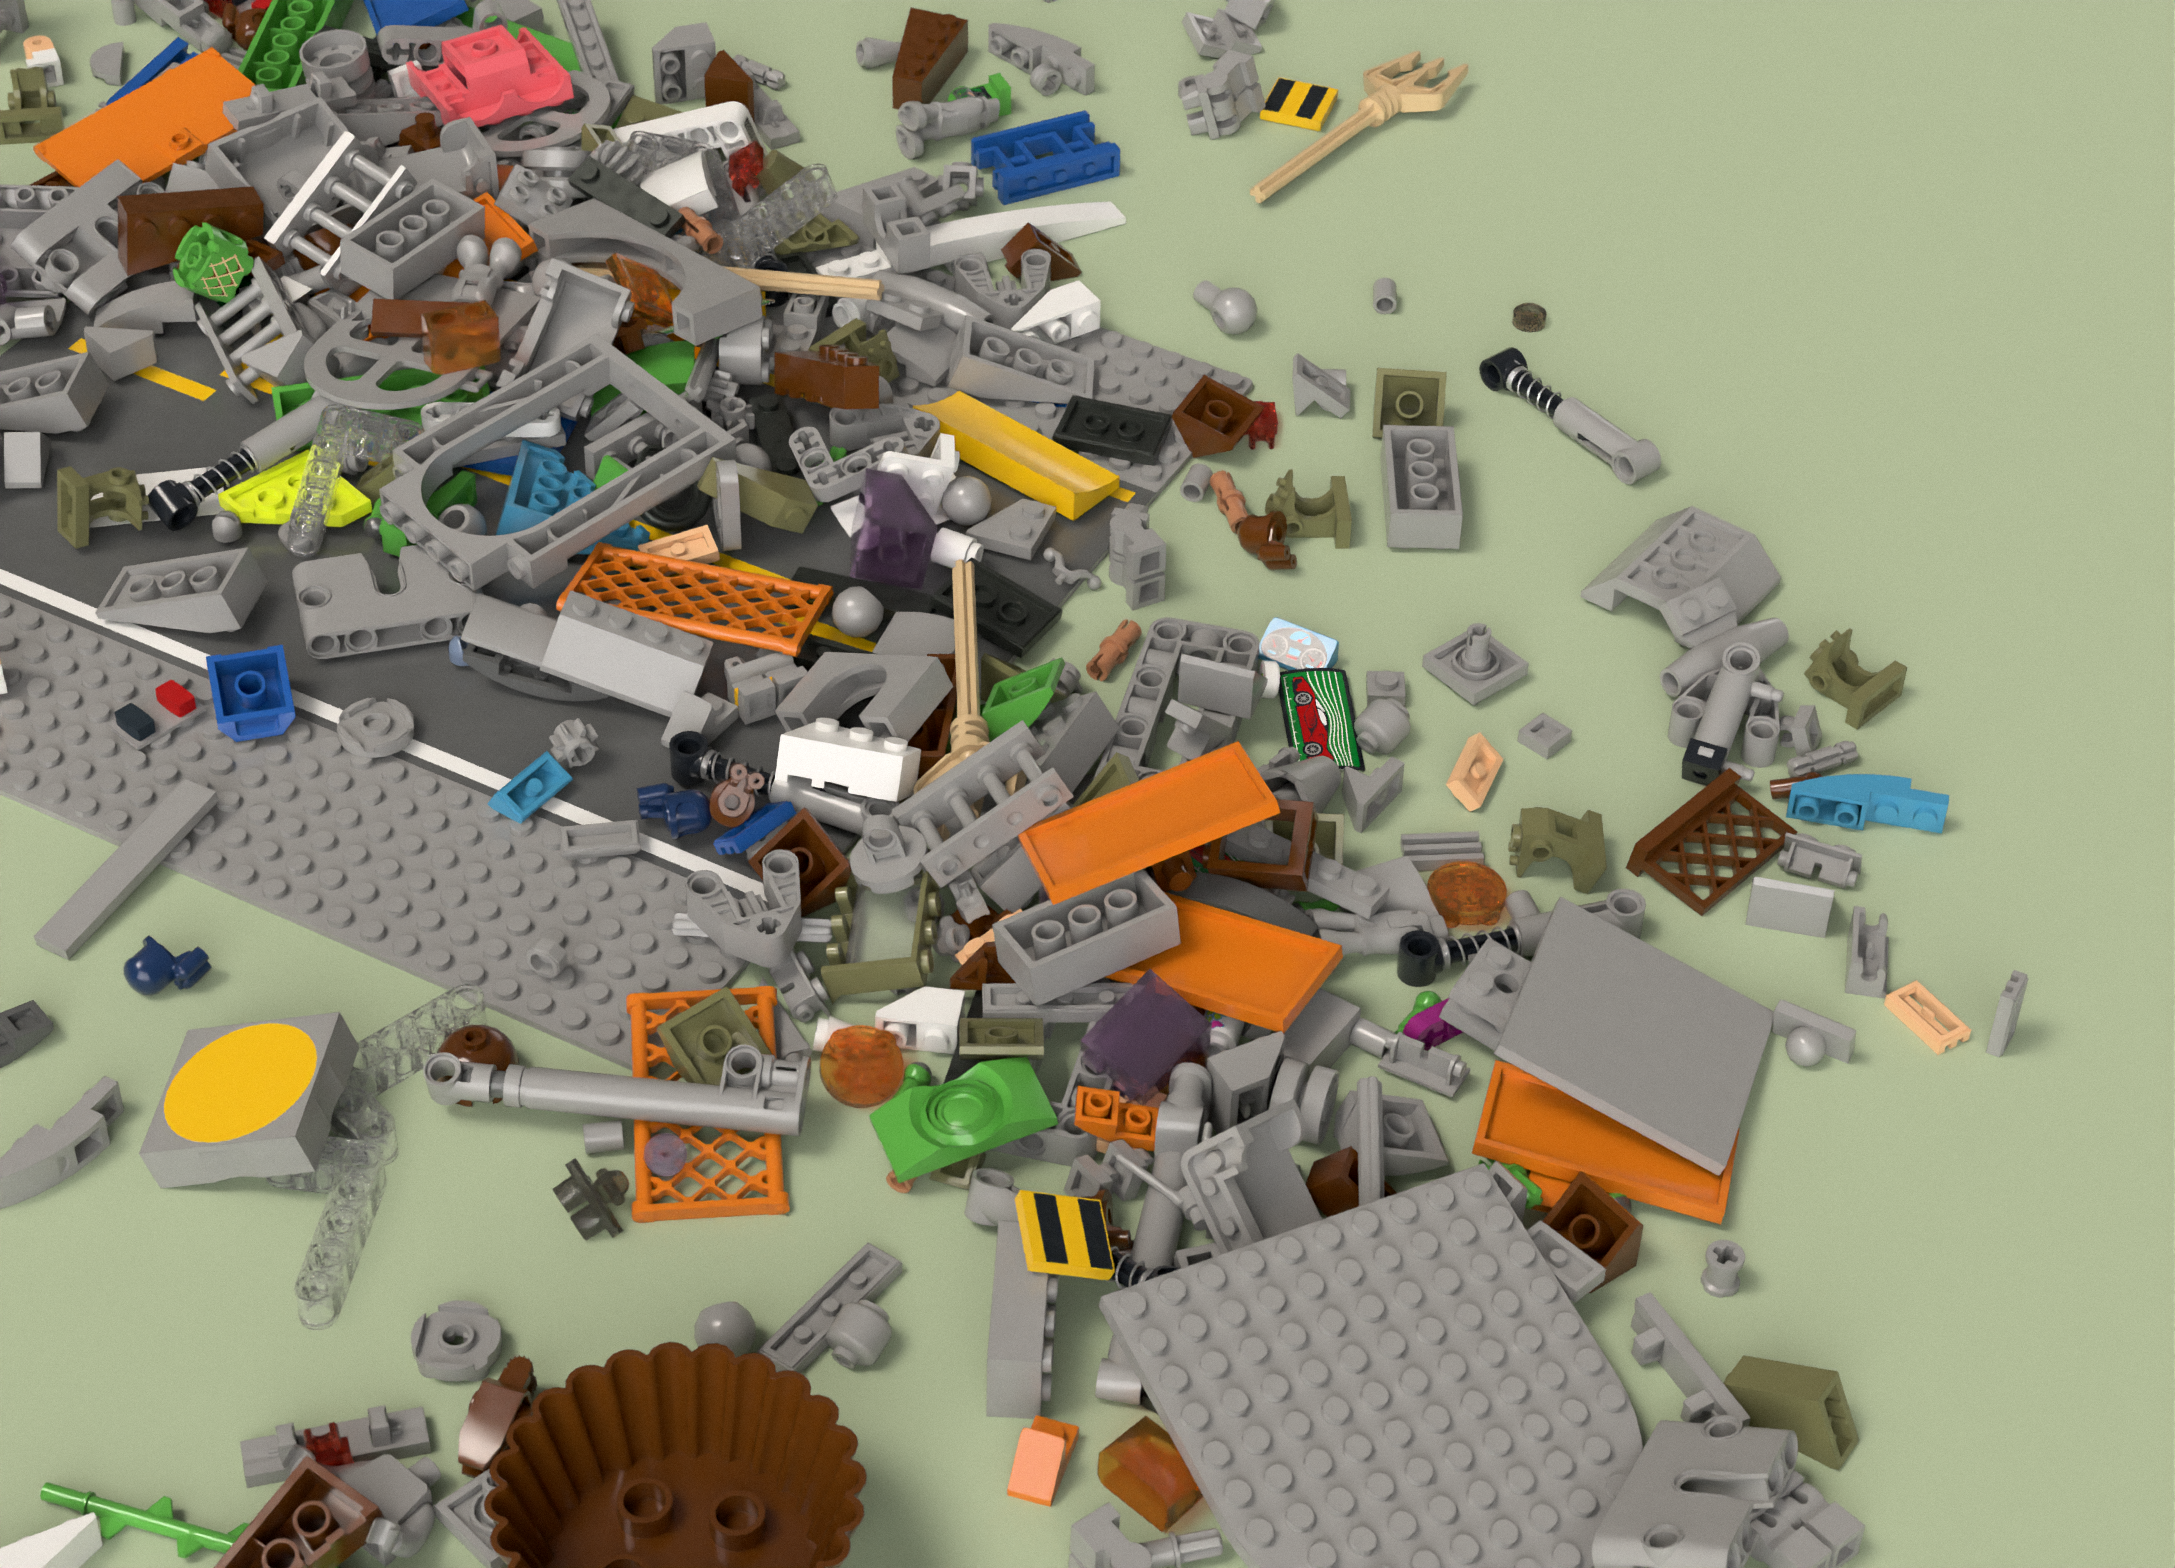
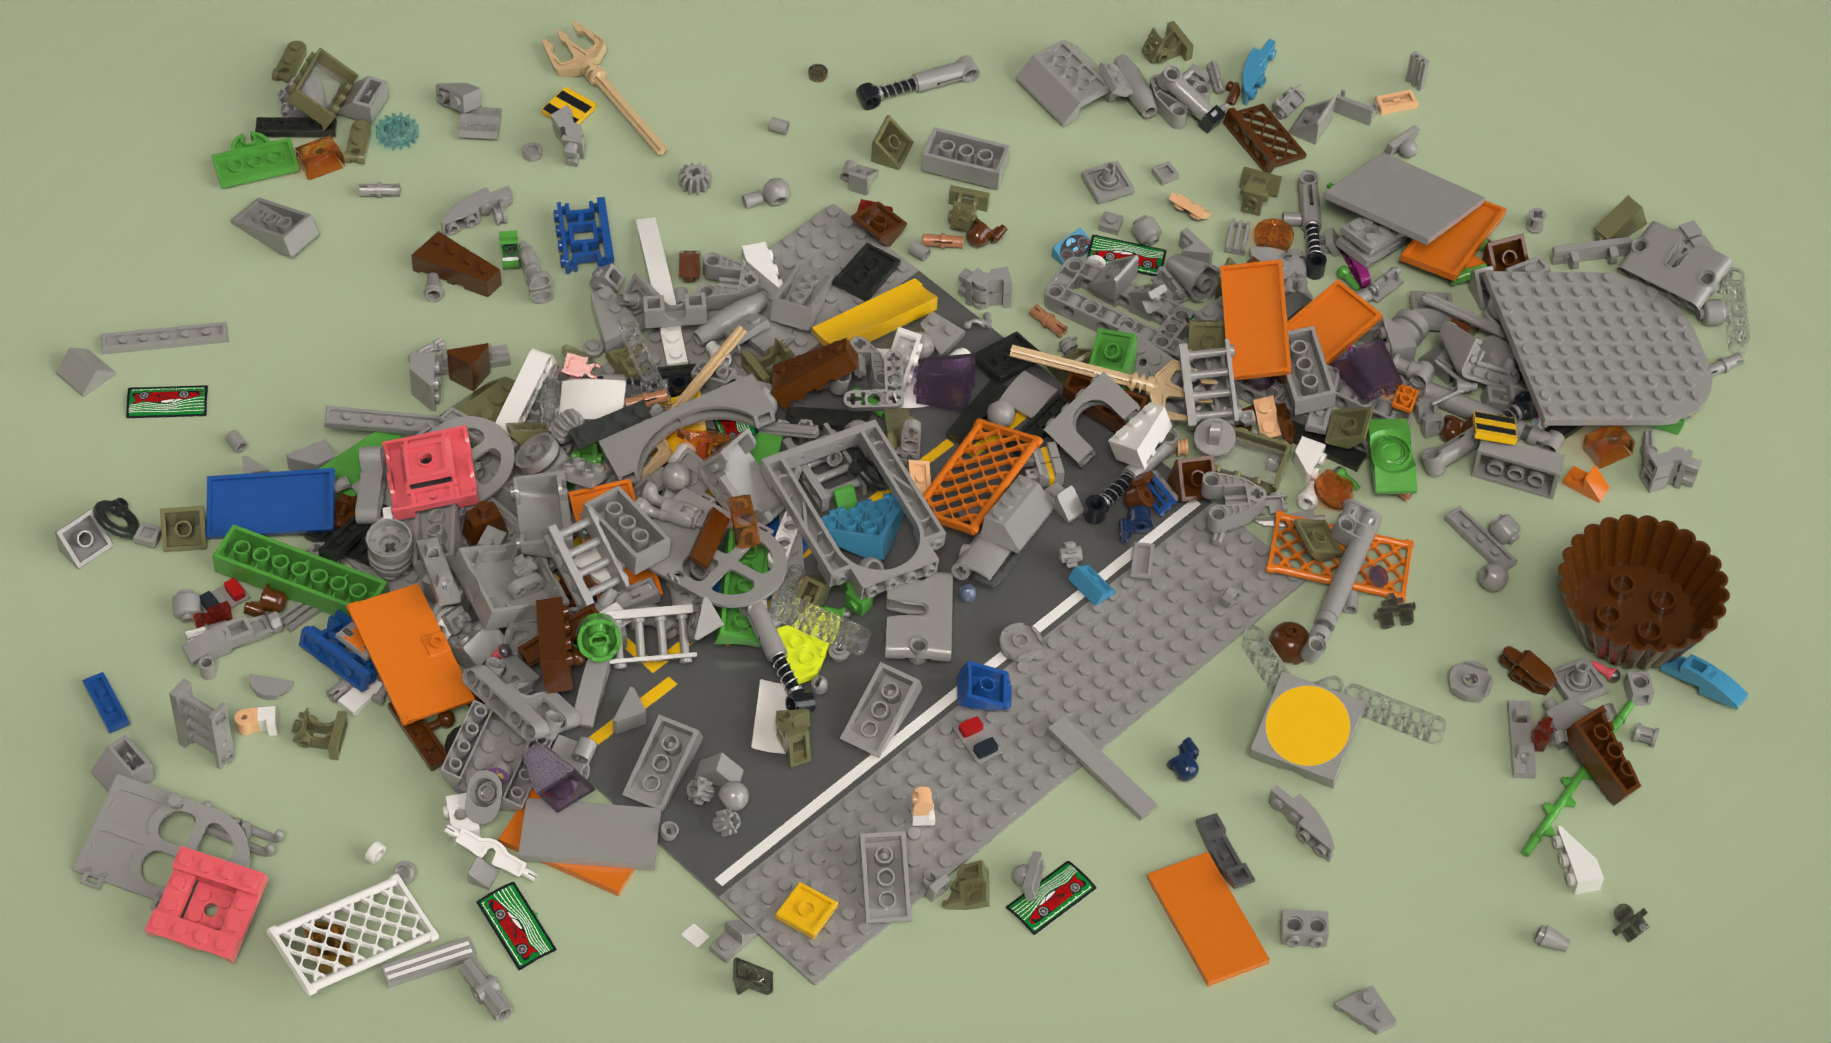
camera: 75 degrees left, 10 degrees up
(1219, 233) = (695, 178): none -> light grey gear

